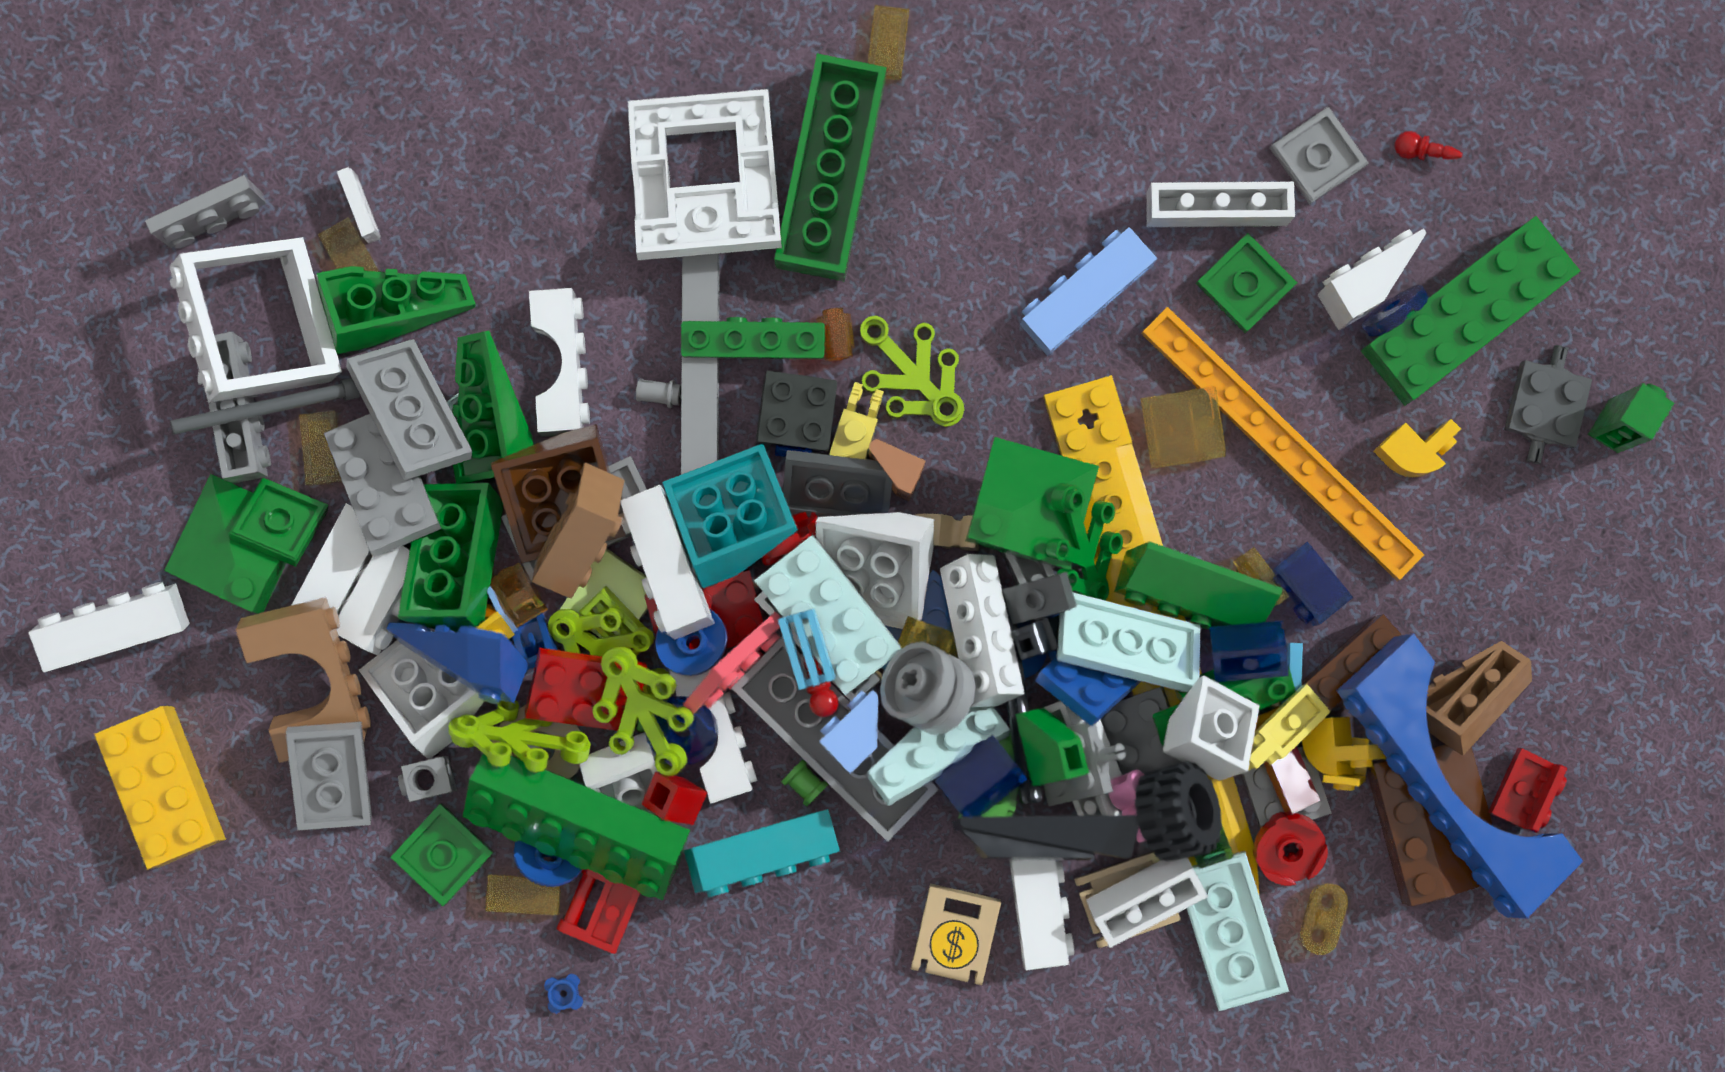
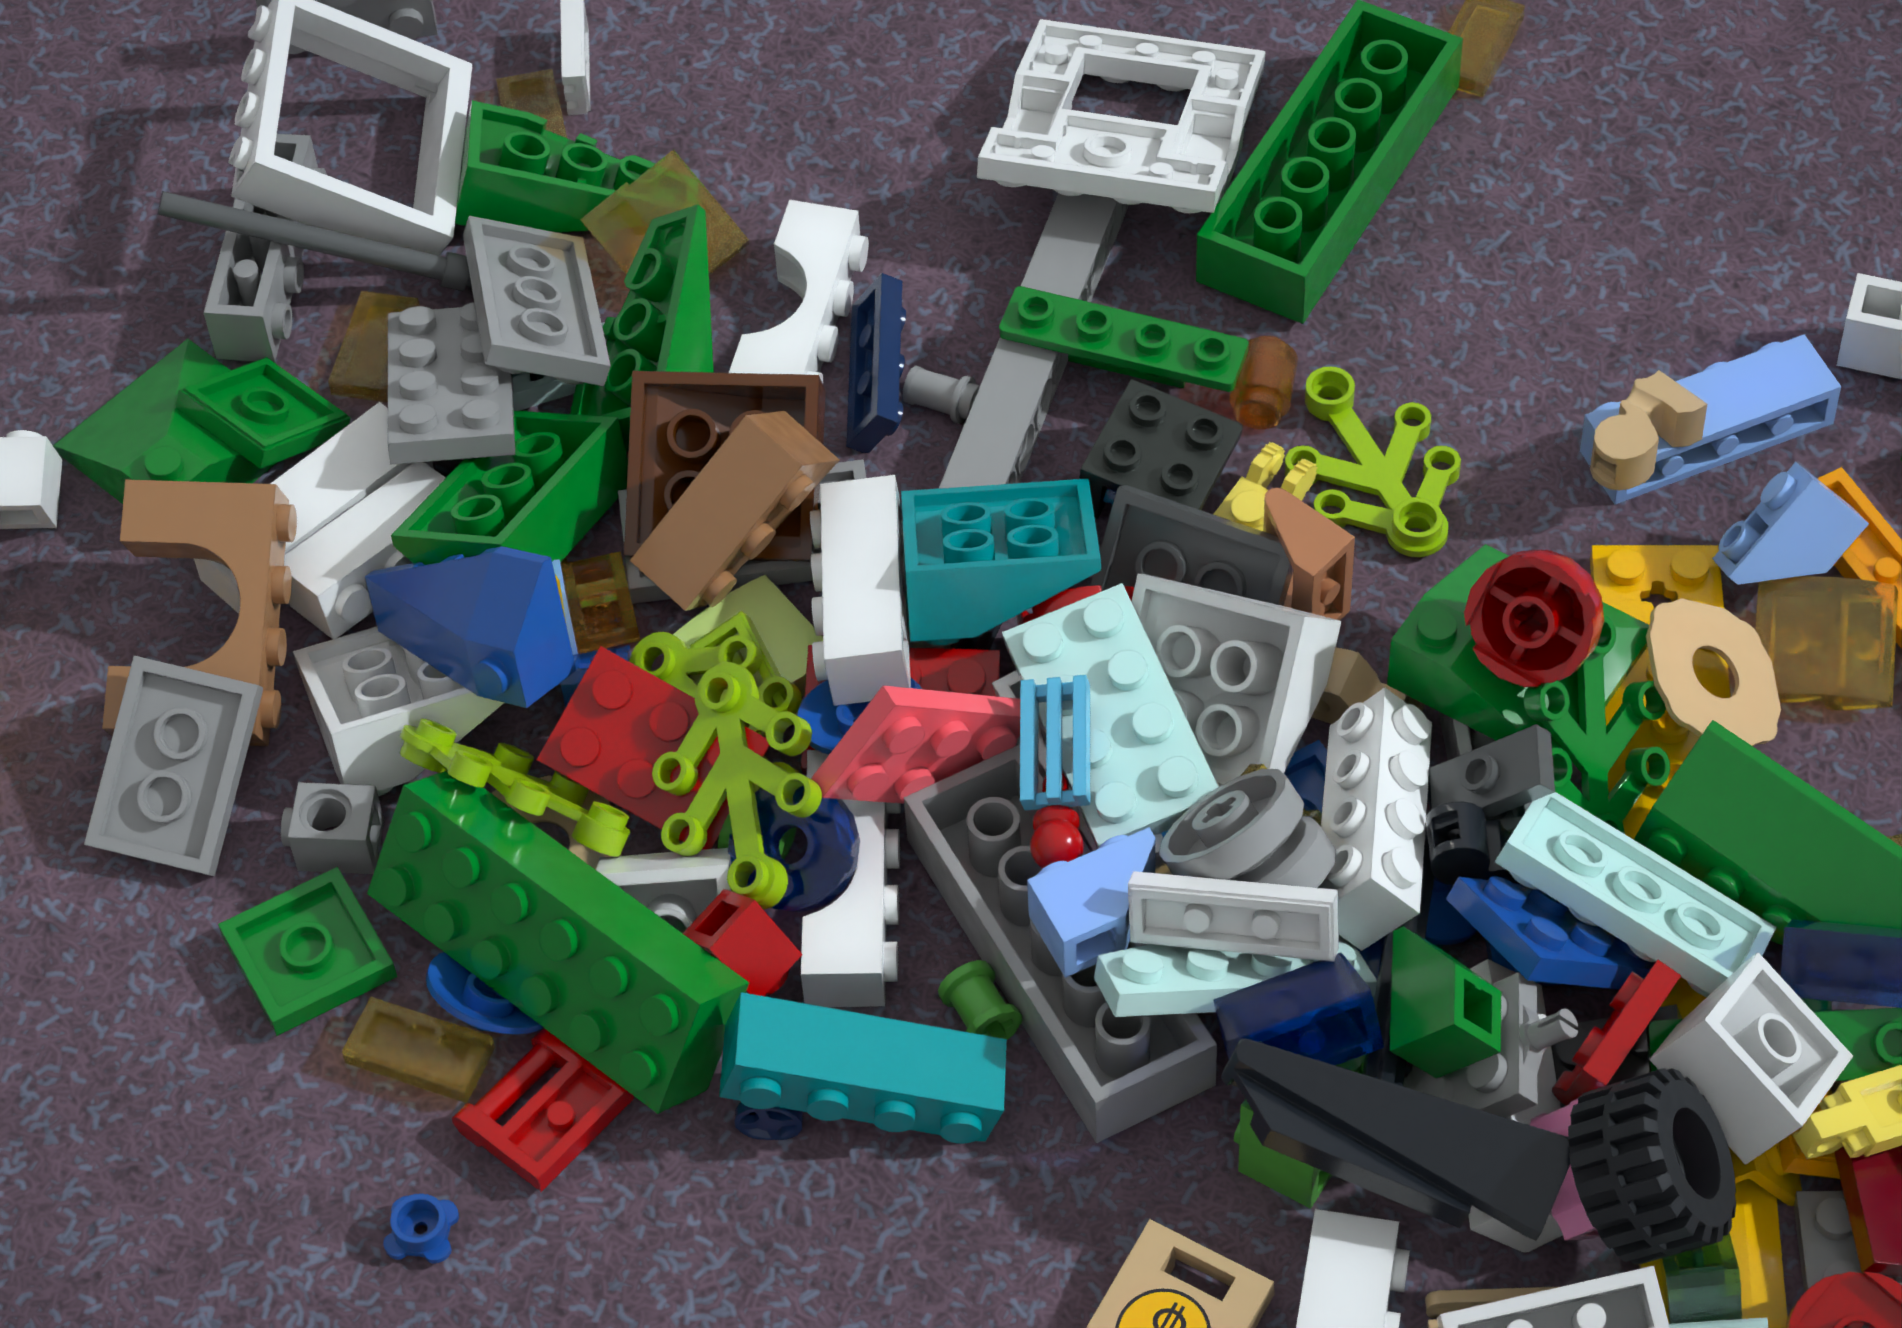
camera: 25 degrees right, 30 degrees down
(455, 314) = (666, 187): none -> clear yellow slope
(614, 385) = (875, 364): none -> dark blue plate
(933, 736) = (1233, 916): none -> white tile
(1045, 515) = (1534, 617): none -> red cylinder
(1055, 344) = (1628, 442): none -> tan leg
(1109, 466) = (1673, 638): none -> tan piece
(1142, 729) = (1608, 1046): none -> red plate
(1153, 371) = (1791, 533): none -> light blue slope

